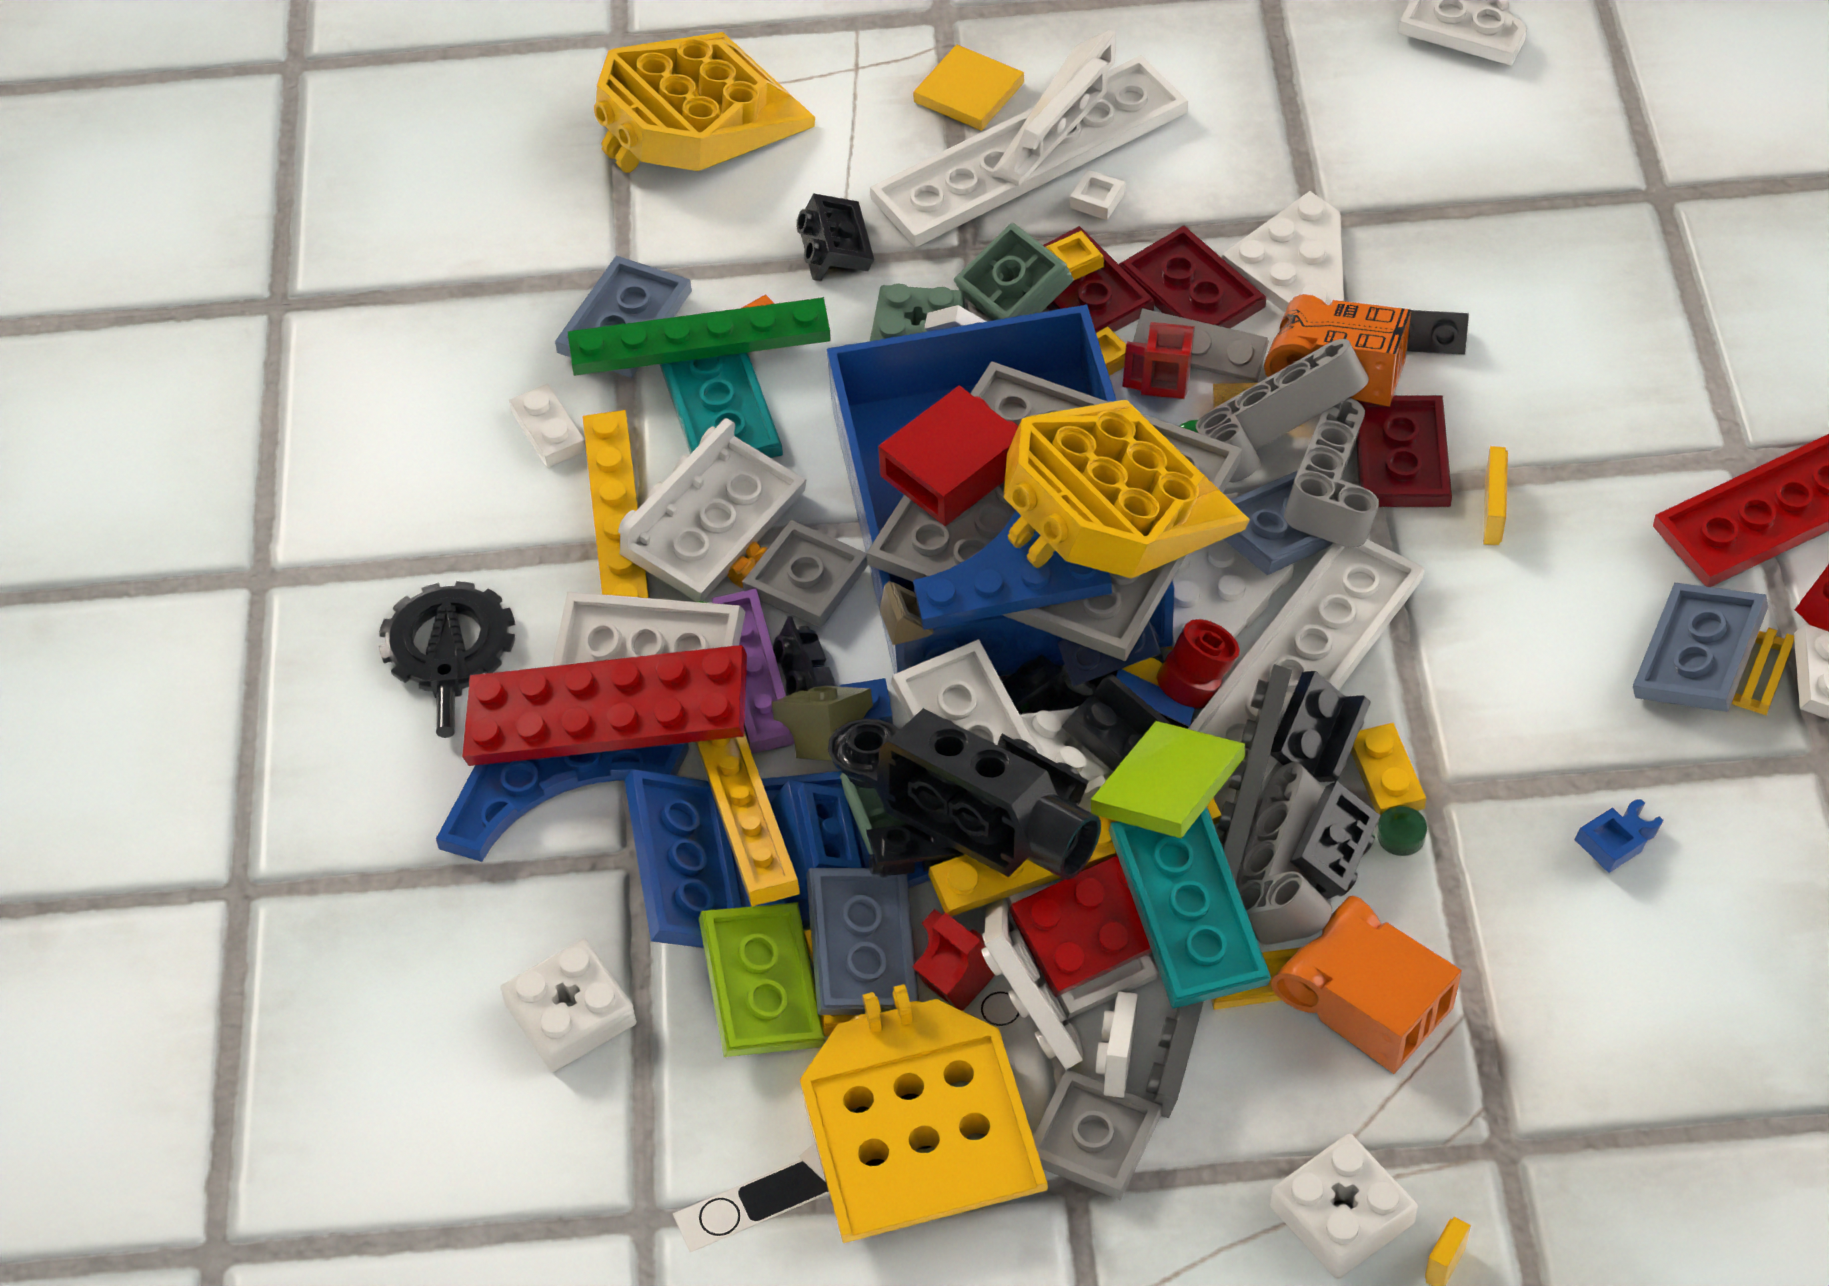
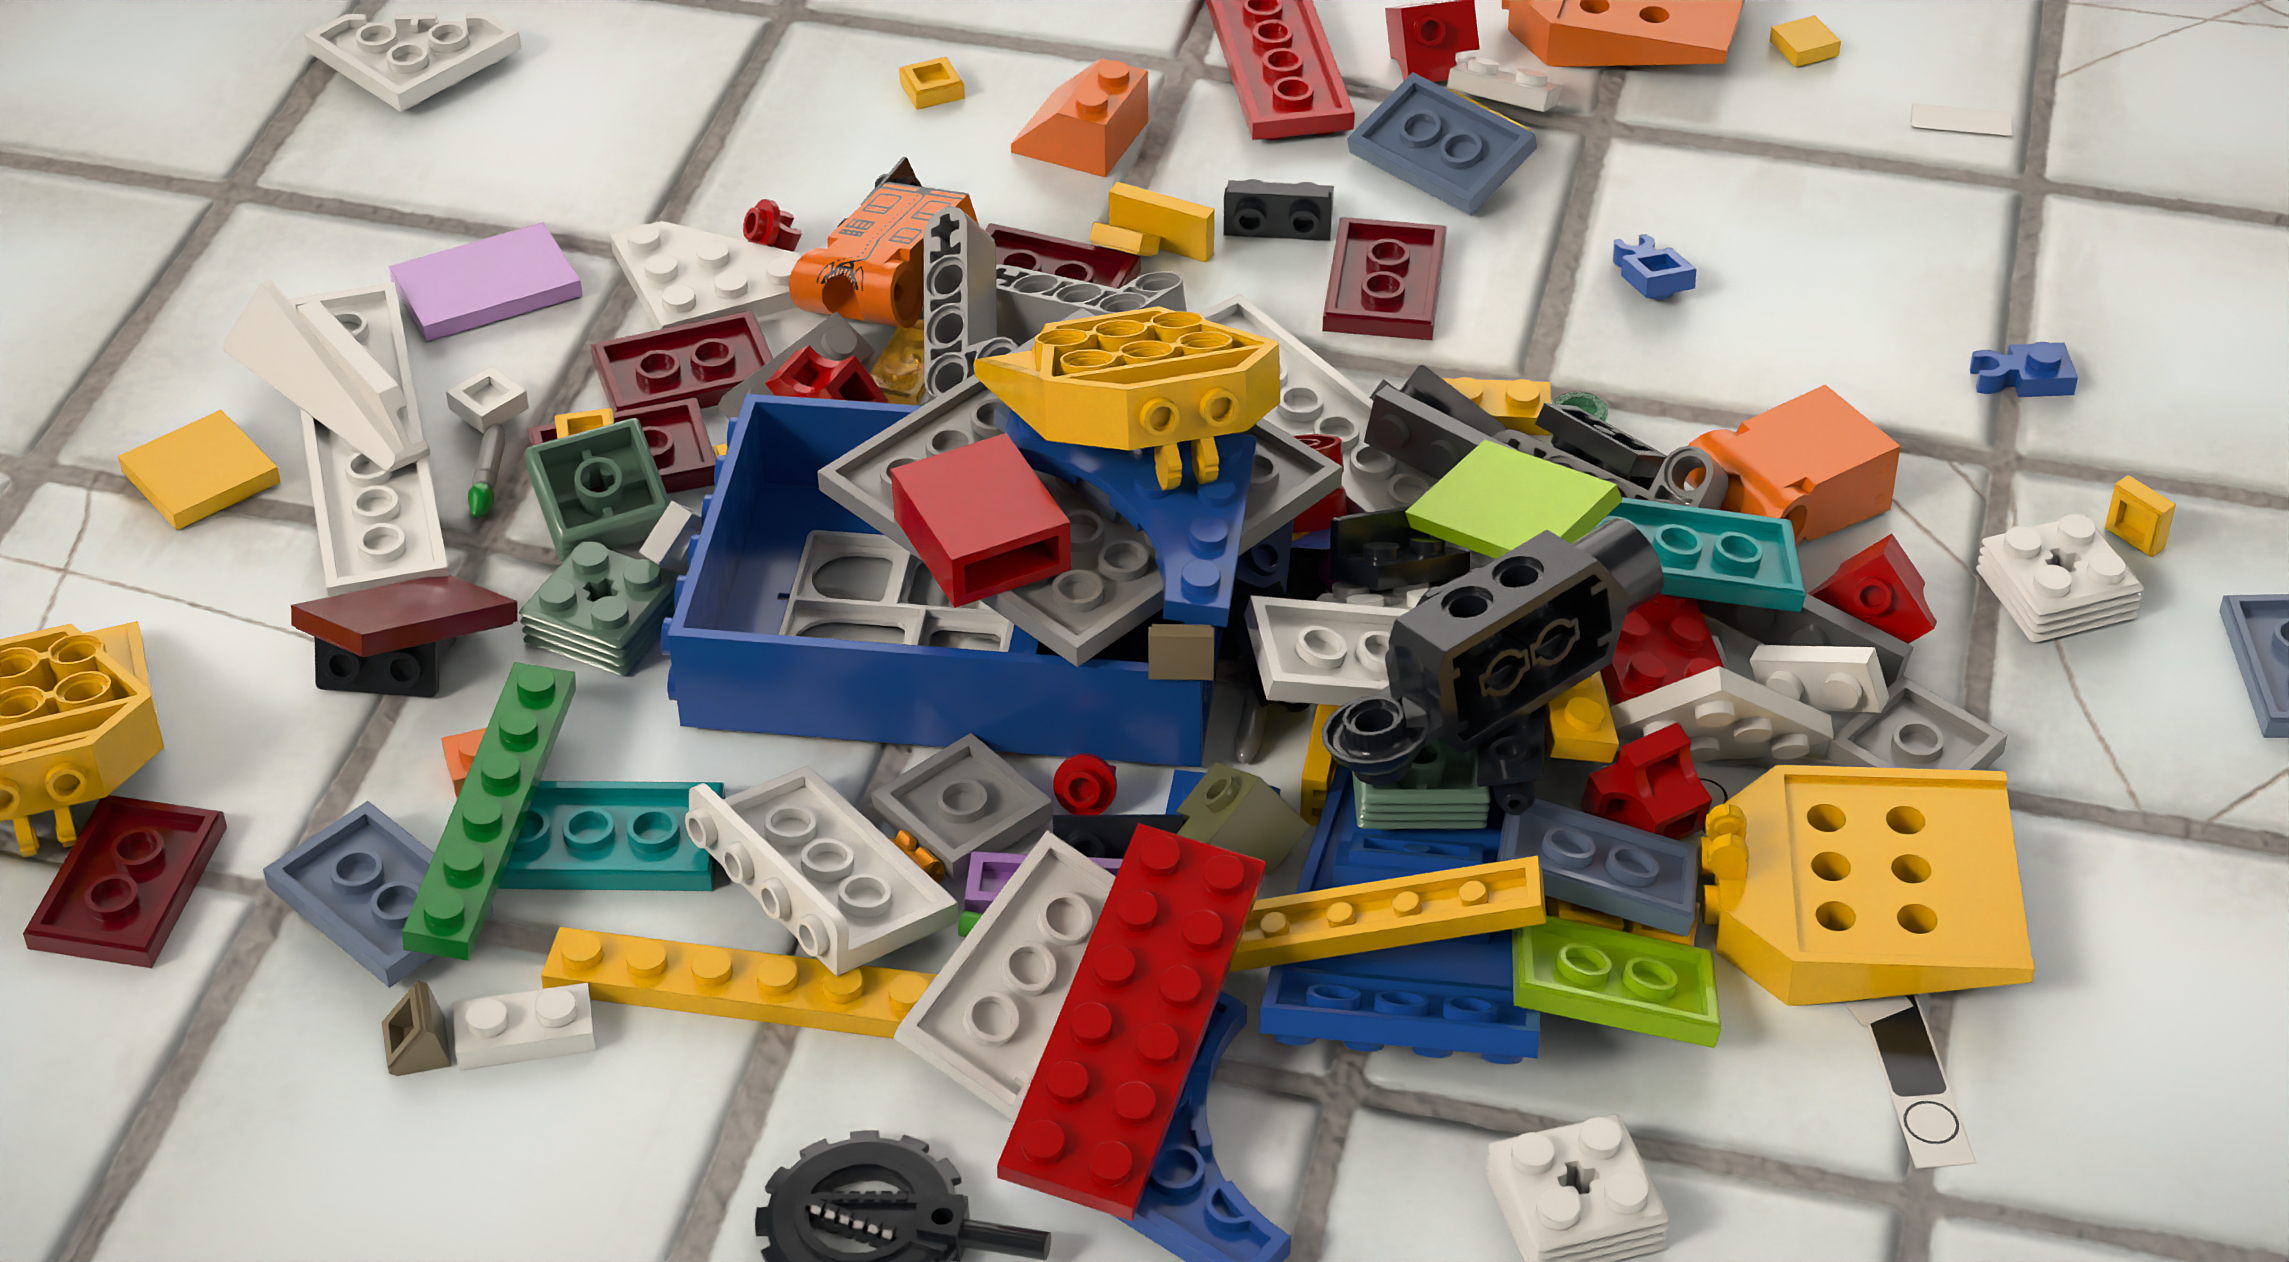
camera: 75 degrees left, 10 degrees down
(523, 377) = (416, 1033): none -> dark tan slope
(602, 204) = (125, 881): none -> dark red tile
(846, 229) = (403, 614): none -> dark red tile
(849, 633) = (1085, 784): none -> red plate
(1038, 221) = (486, 471): none -> light grey piece
(1230, 148) = (485, 281): none -> lavender tile
(1241, 1068) = (1881, 591): none -> red brick
(1361, 269) = (770, 226): none -> red plate
(1462, 480) = (1124, 239): none -> yellow tile
(1516, 661) = (1385, 278): none -> tile
(1564, 567) = (1278, 210): none -> black bracket
(1606, 417) = (1089, 119): none -> orange slope
(1611, 307) = (931, 83): none -> yellow tile
(1631, 1149) = (2030, 368): none -> blue plate

